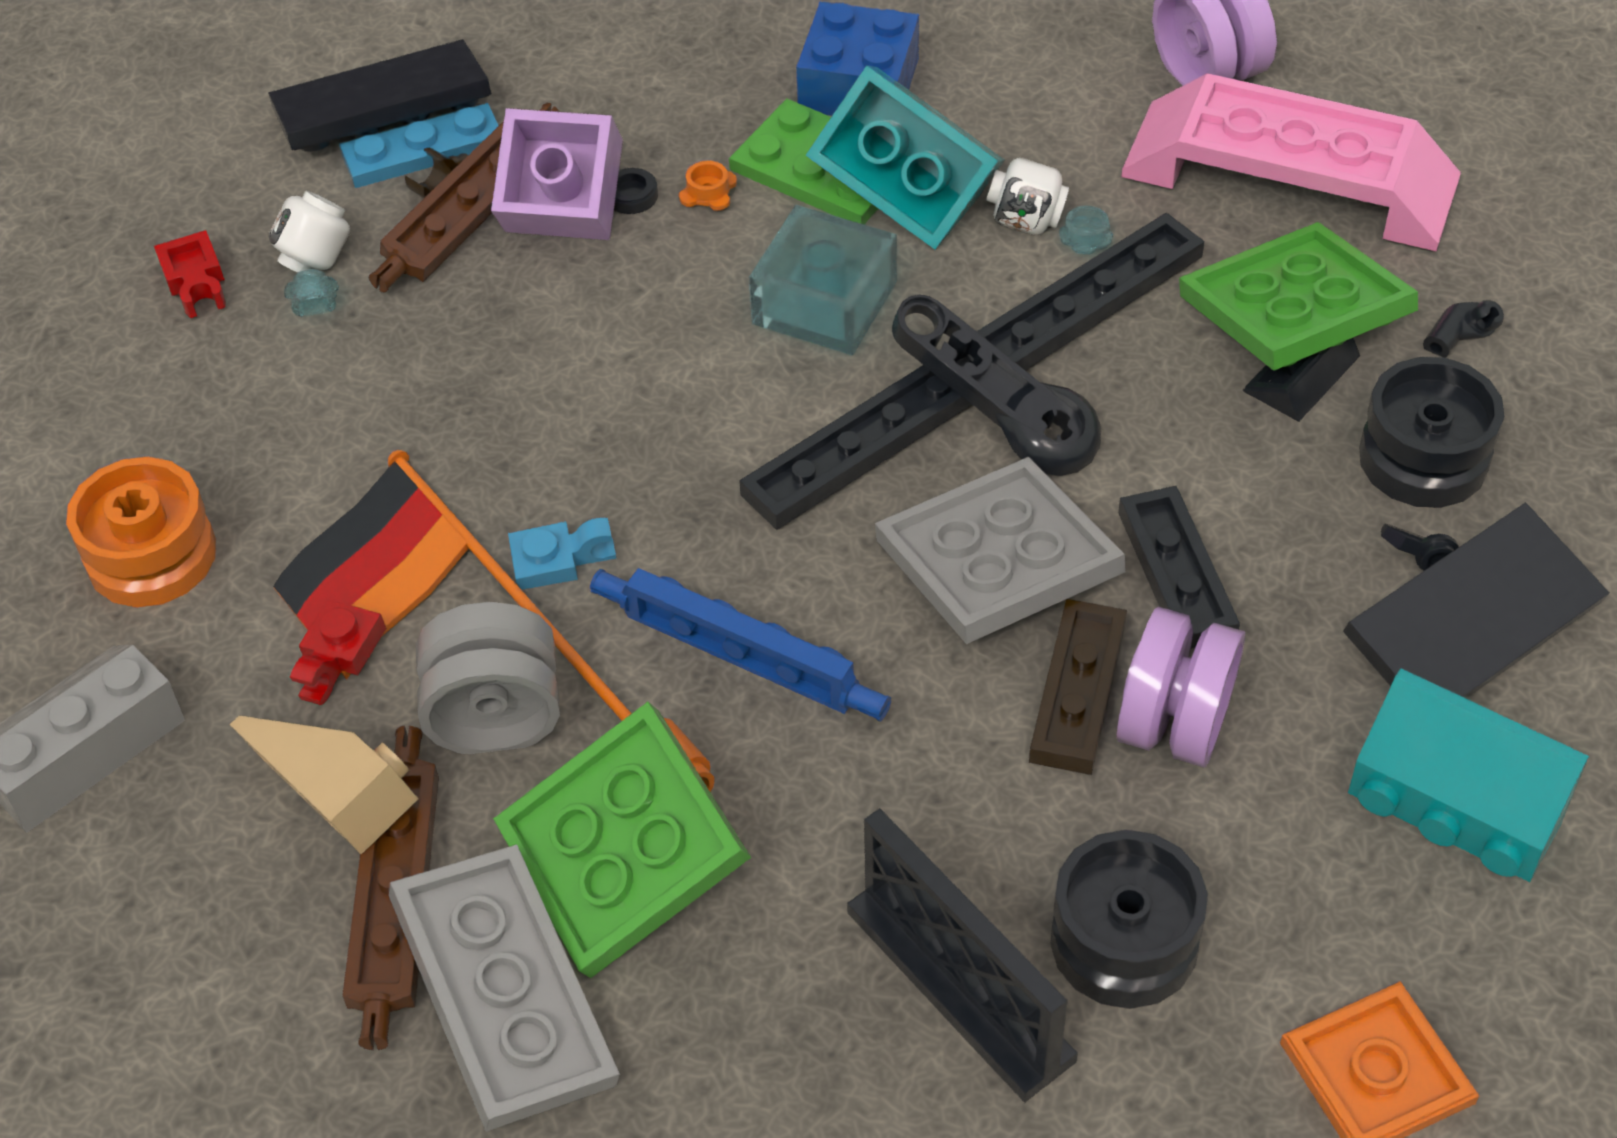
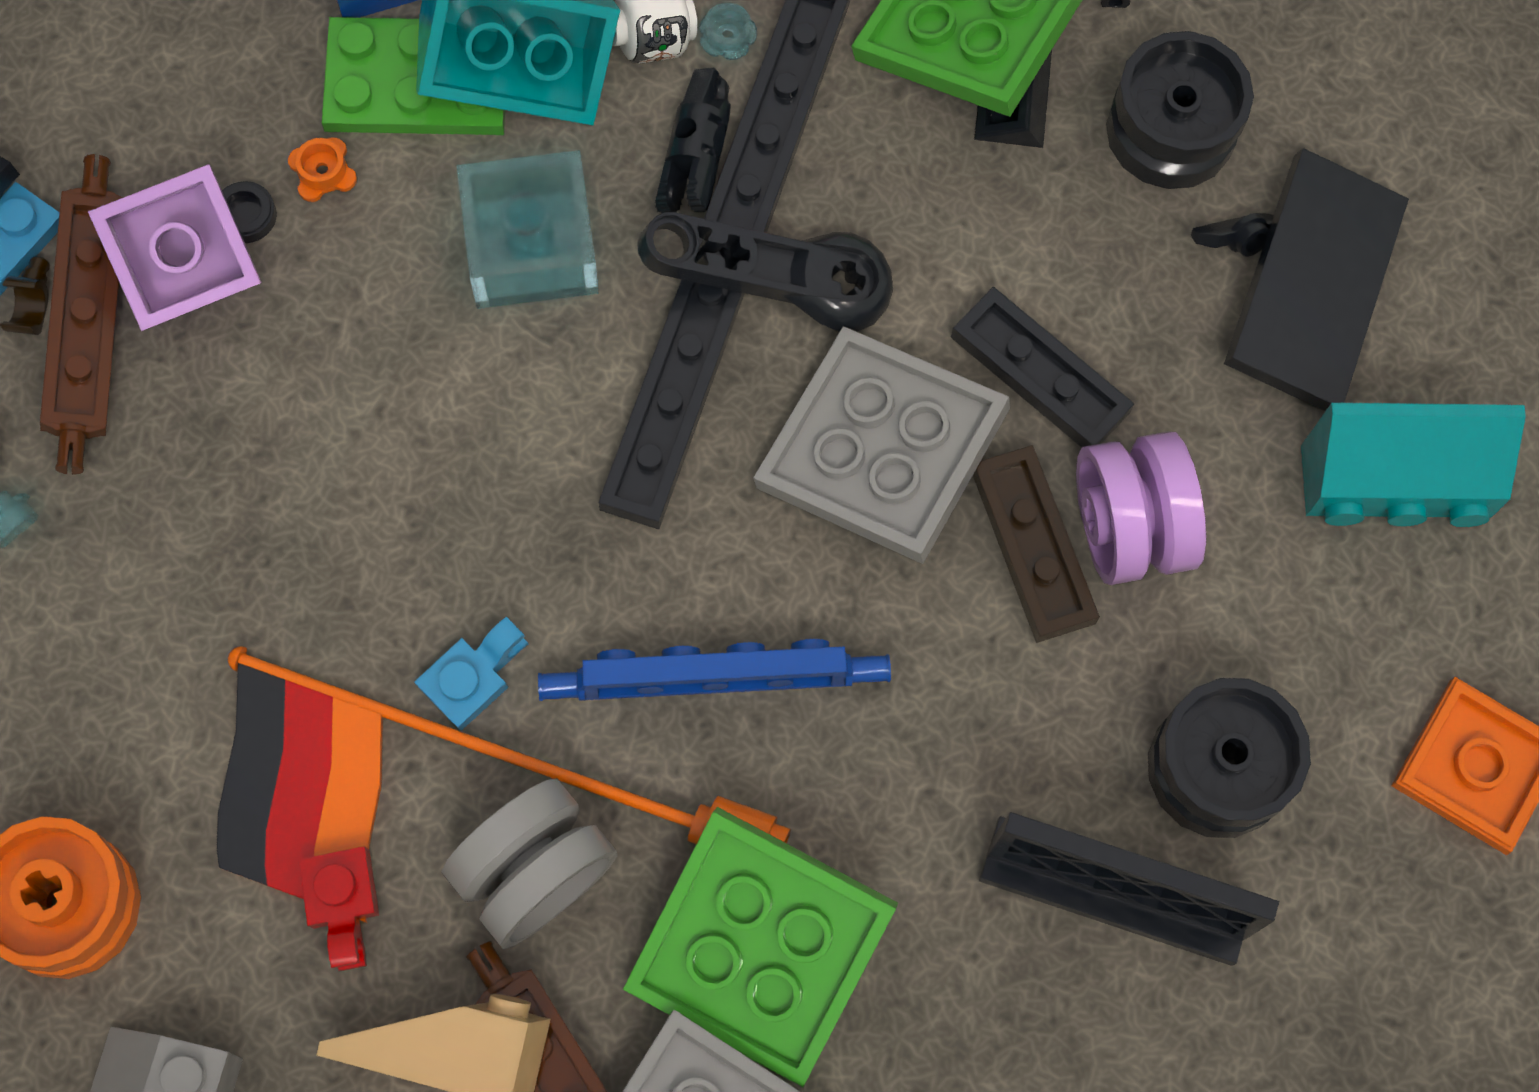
camera: 40 degrees left, 20 degrees up
(1007, 284) = (695, 143): none -> black hinge

